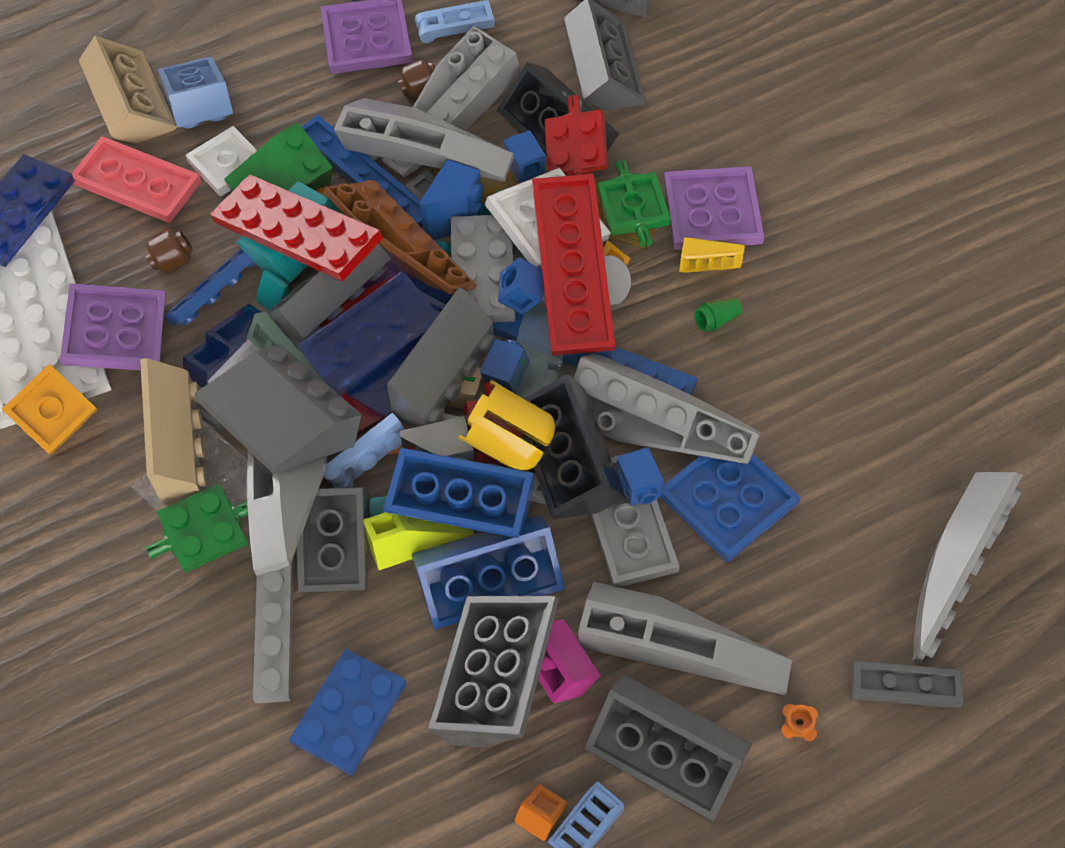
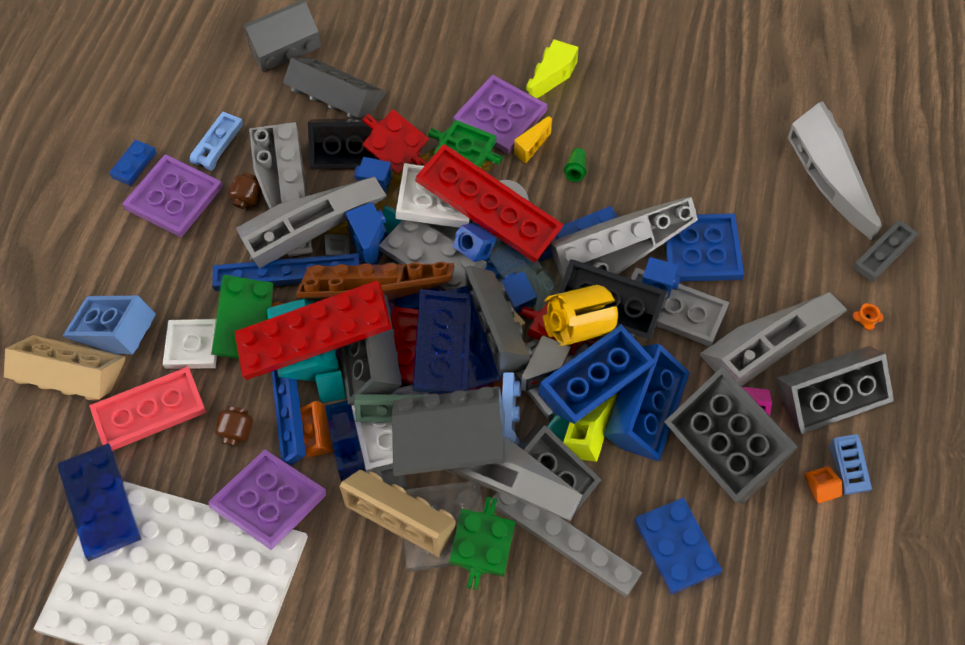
camera: 50 degrees left, 0 degrees up
(49, 409) = (297, 581): light orange plate -> none
(226, 305) = (316, 429): none -> orange slope
(816, 212) = (555, 68): none -> neon yellow slope

